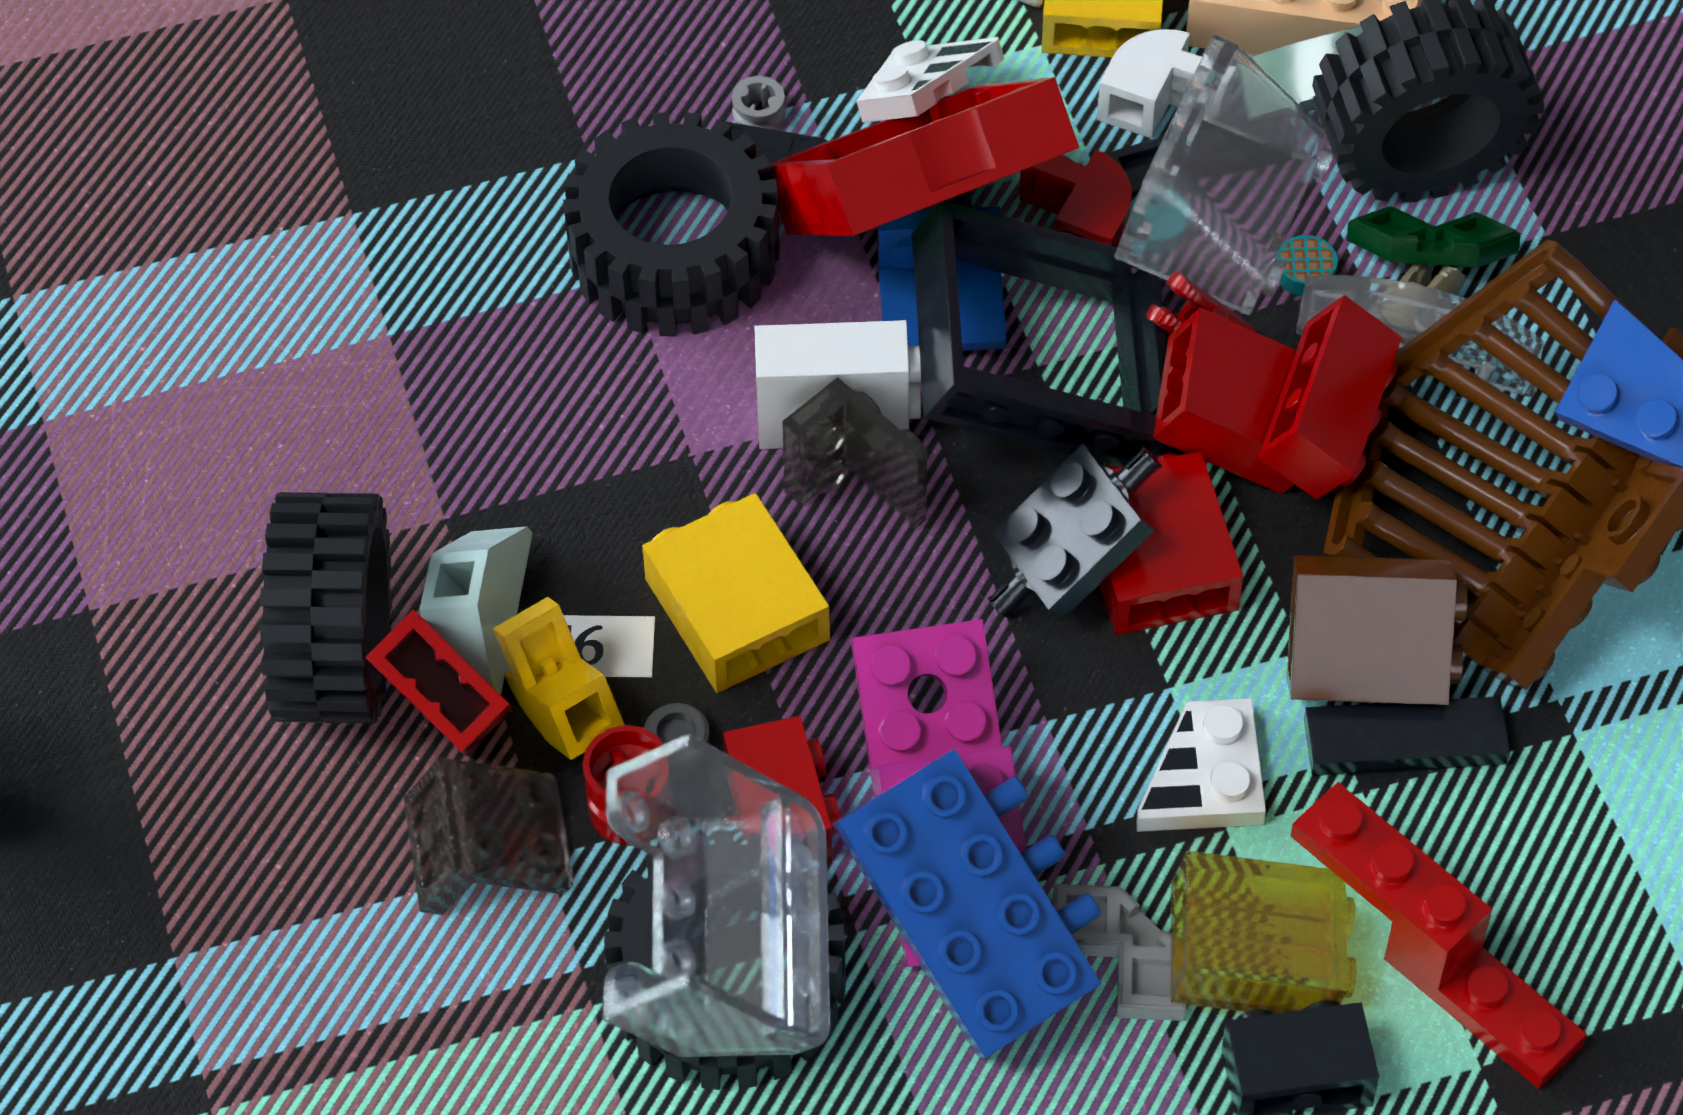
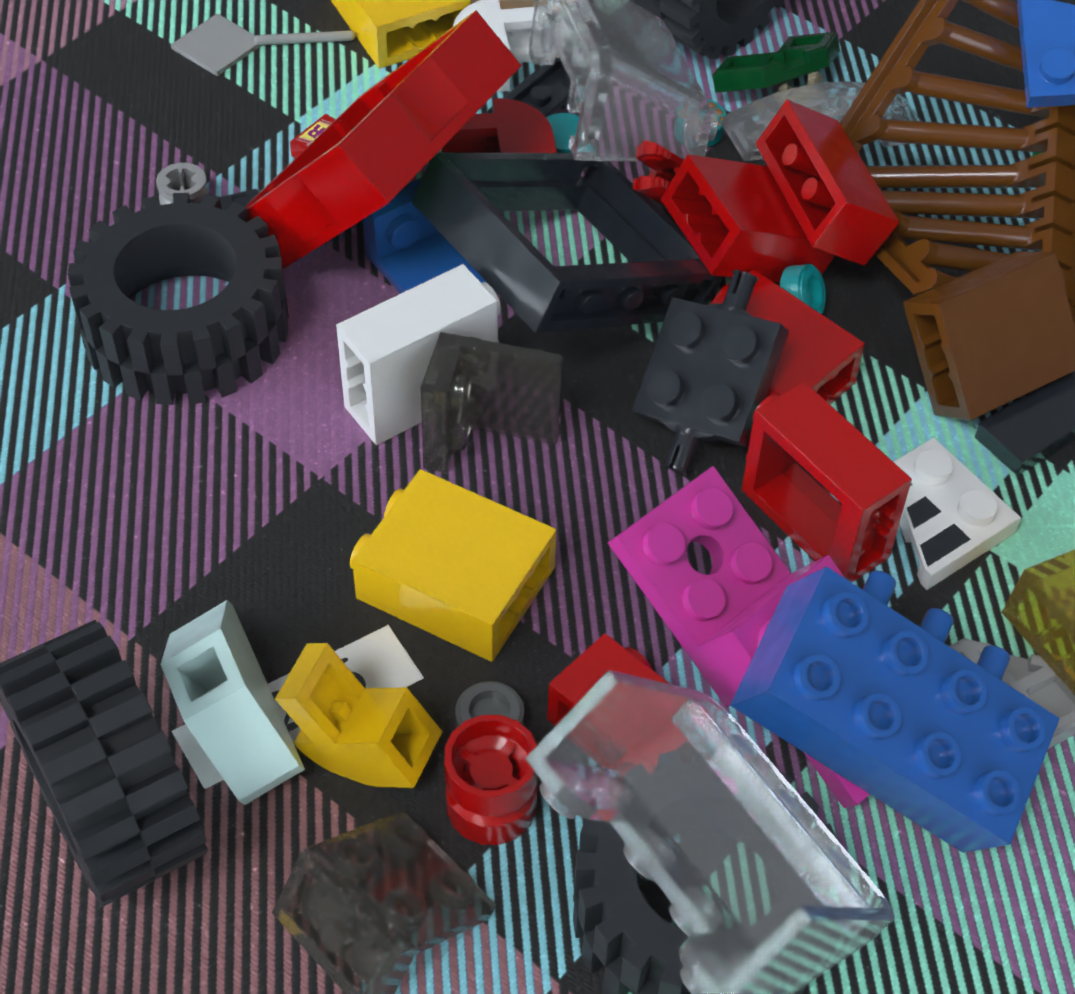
camera: 35 degrees left, 5 degrees down
(439, 682) = (267, 774): red brick -> none
(921, 75) = (313, 109): white wing -> none
(1091, 686) = (840, 458): none -> red window
(1245, 497) = (805, 284): none -> teal tile

